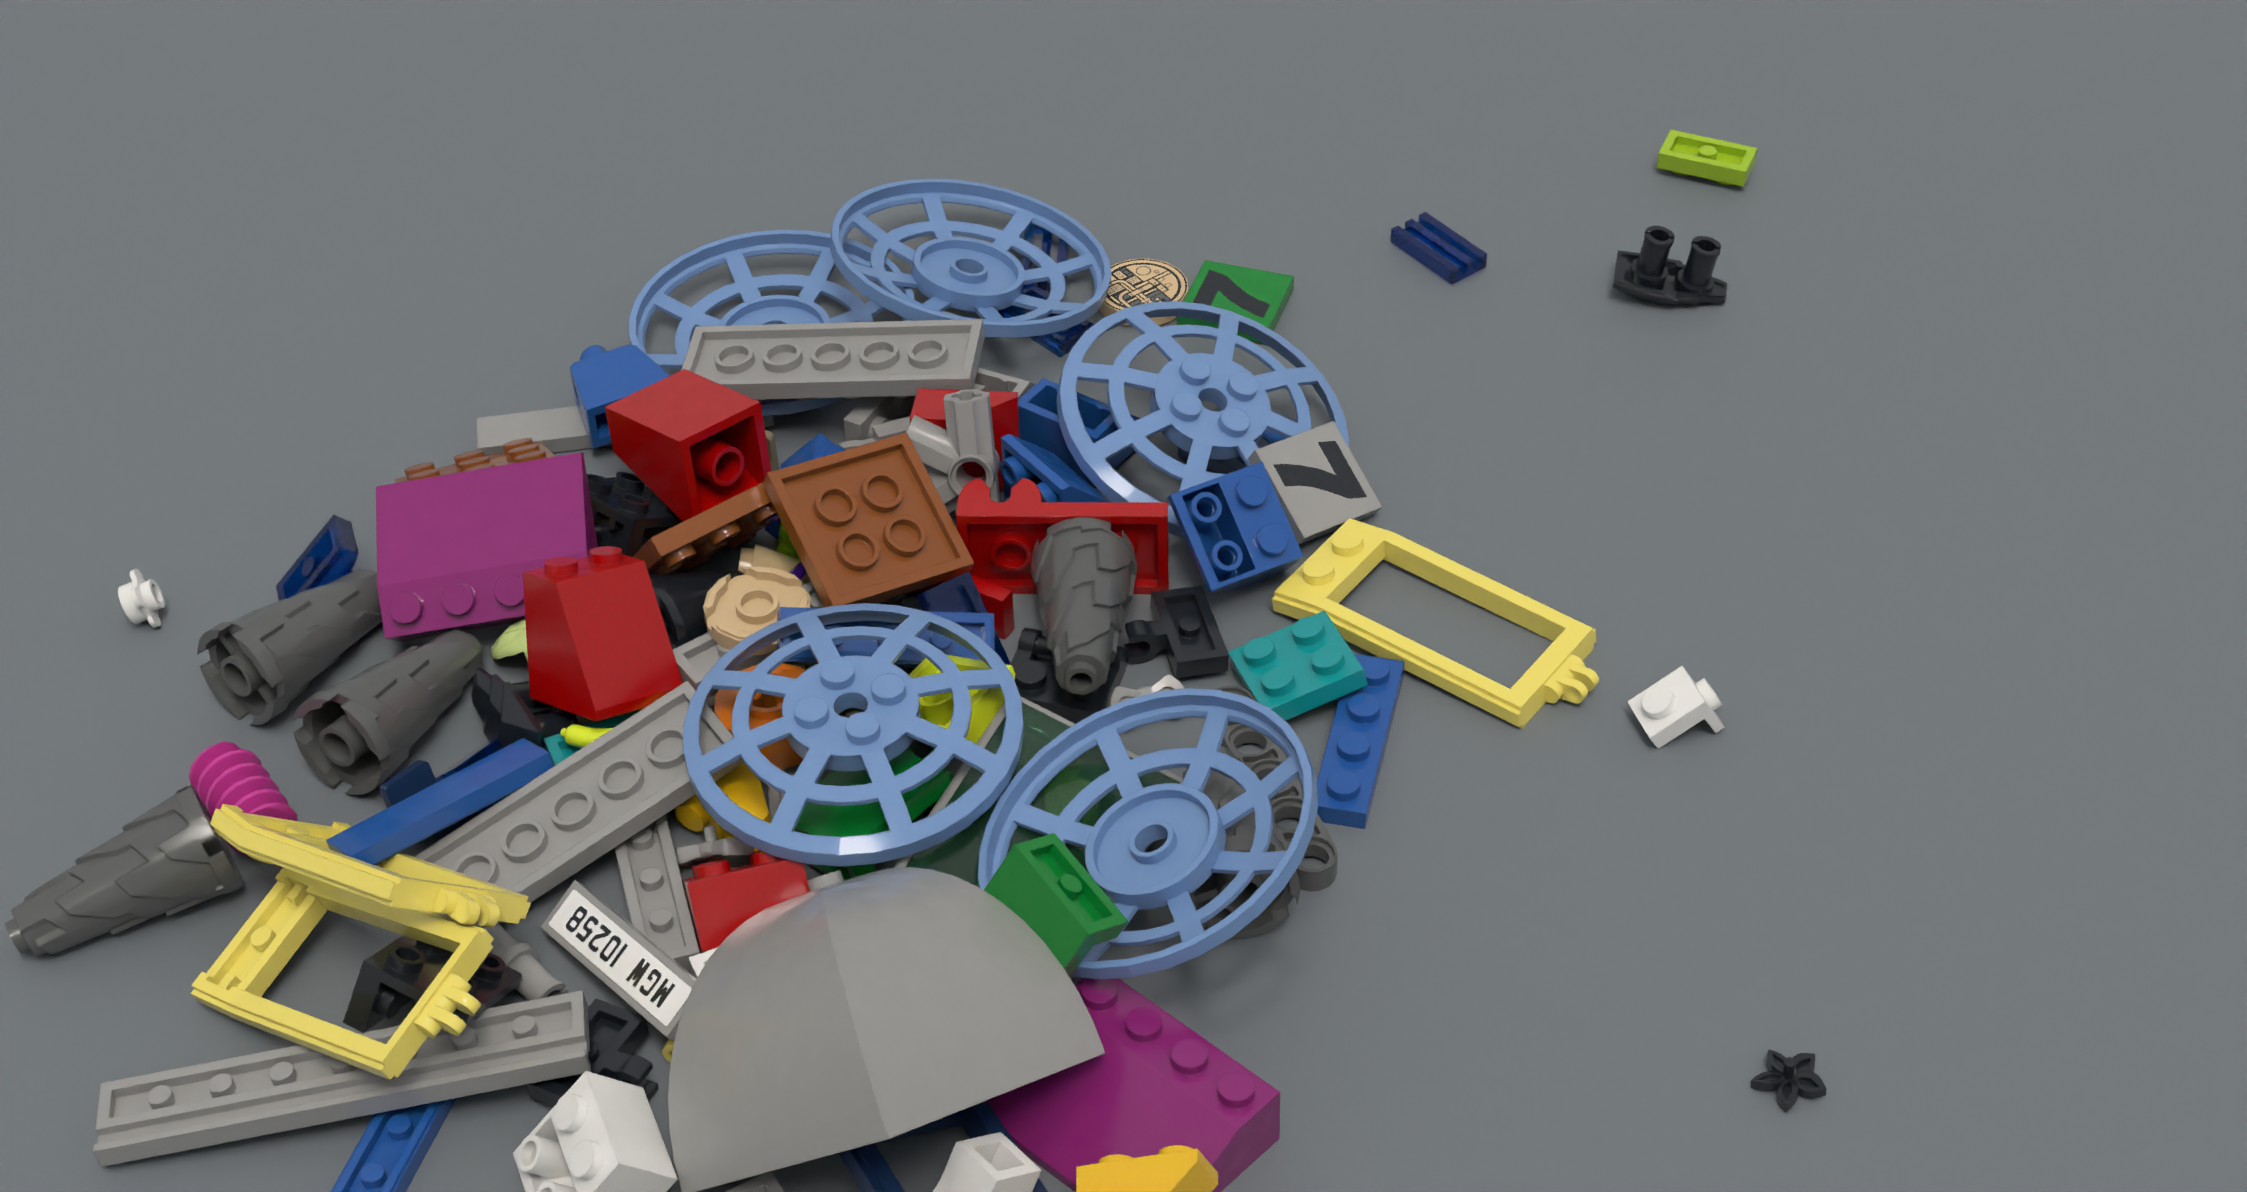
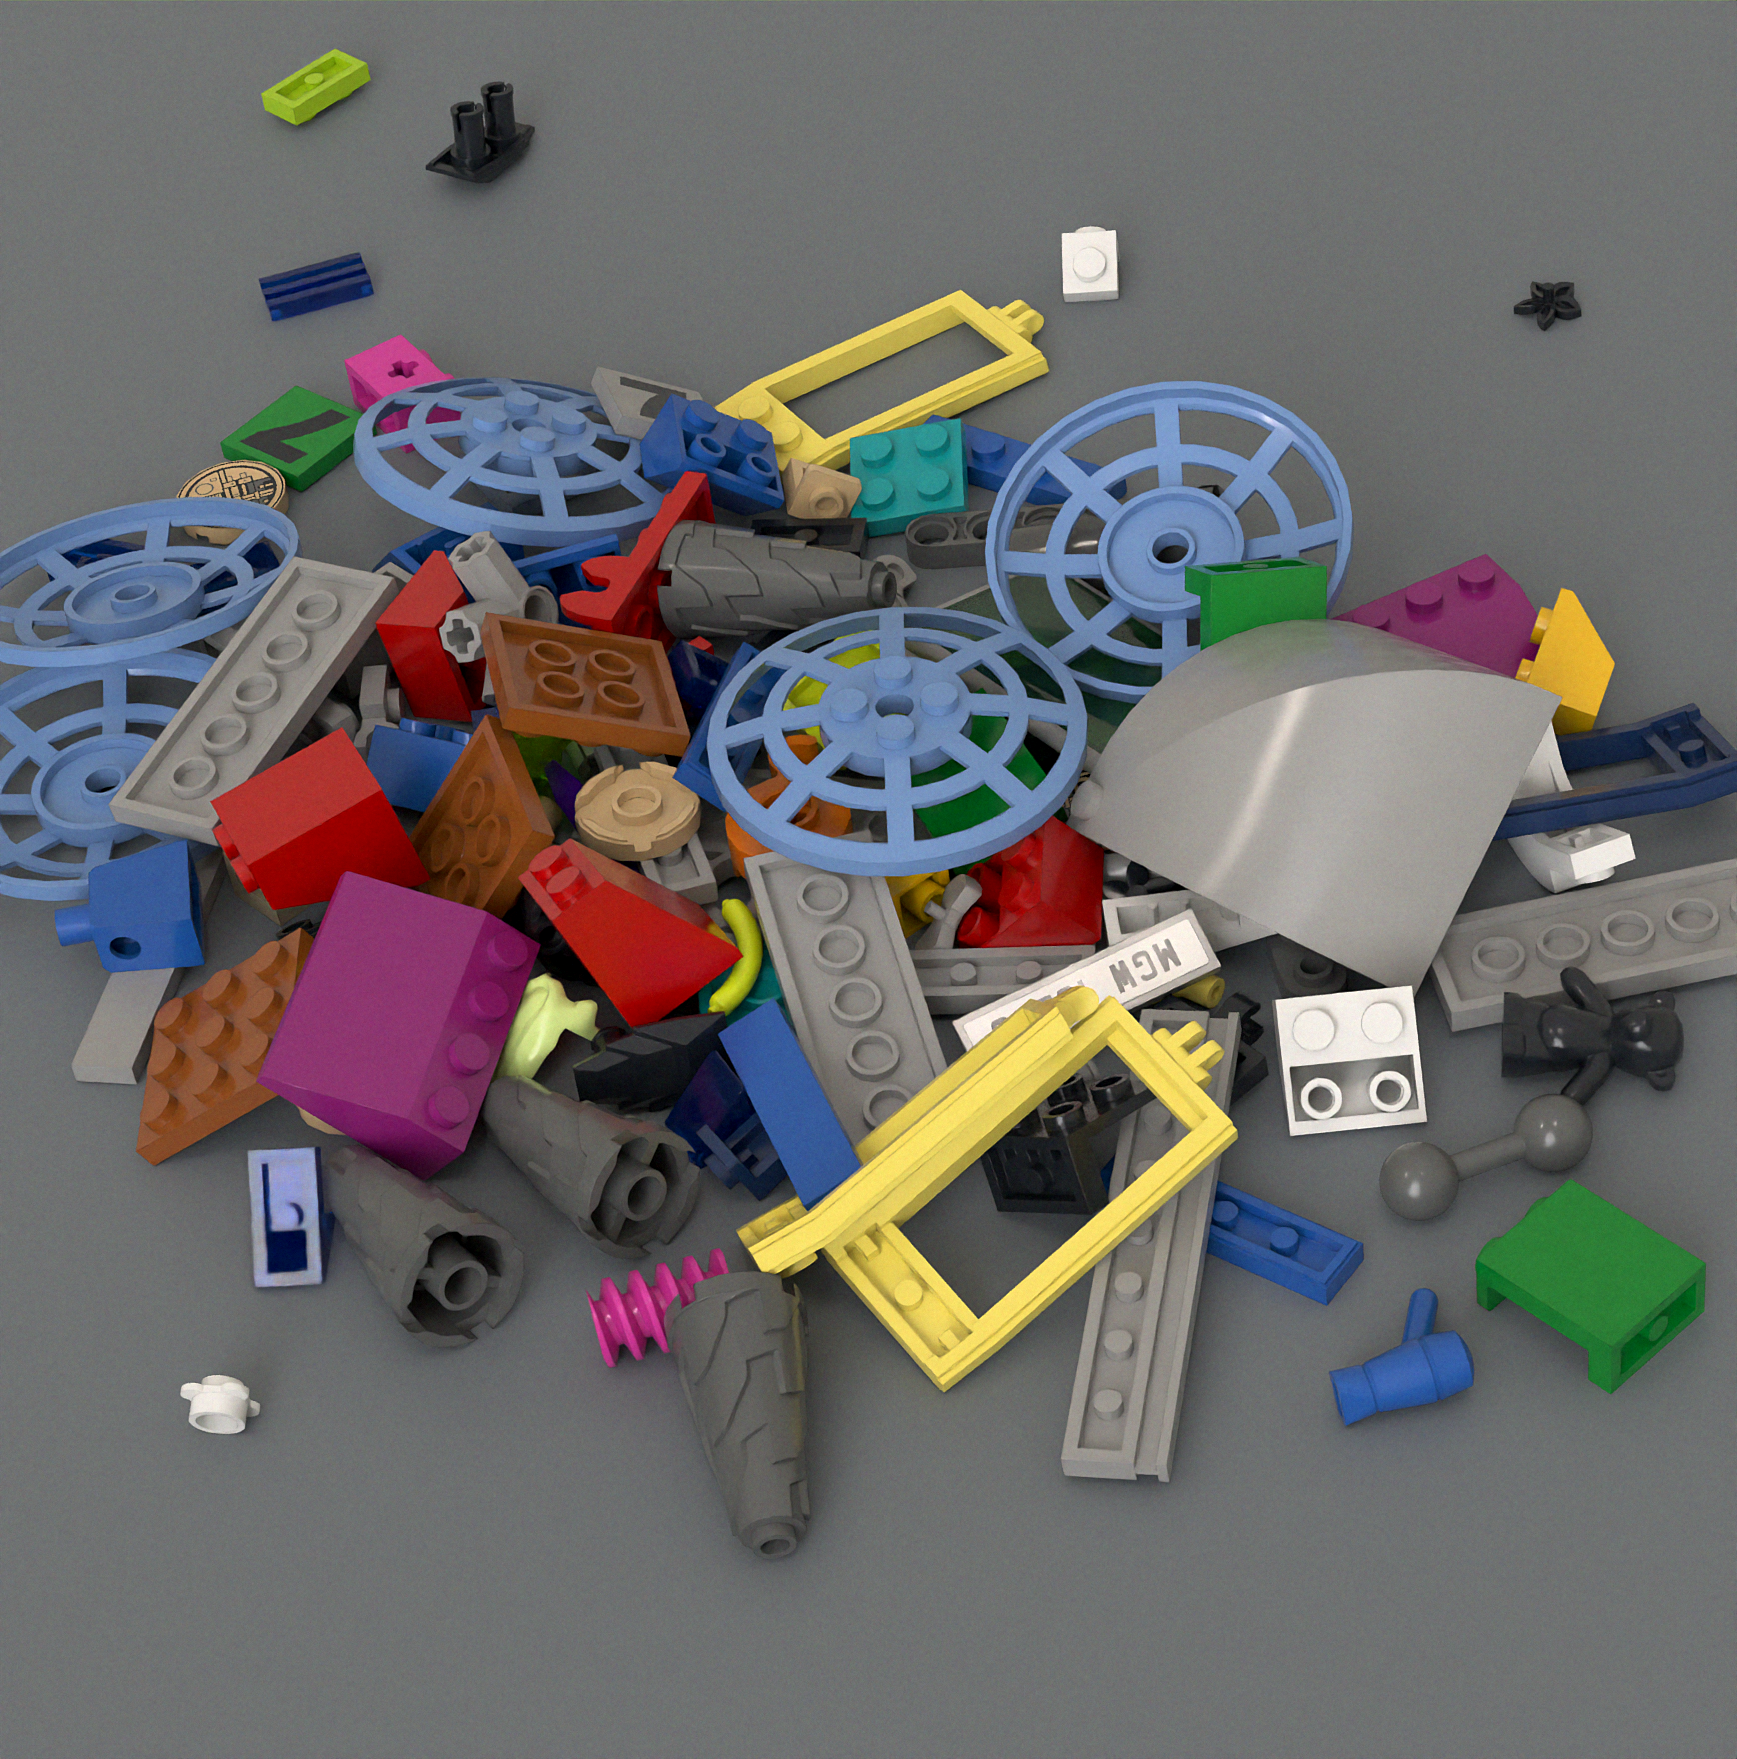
camera: 65 degrees left, 0 degrees up
(1252, 612) = (818, 491): none -> tan bracket
(1312, 323) = (388, 370): none -> dark pink brick

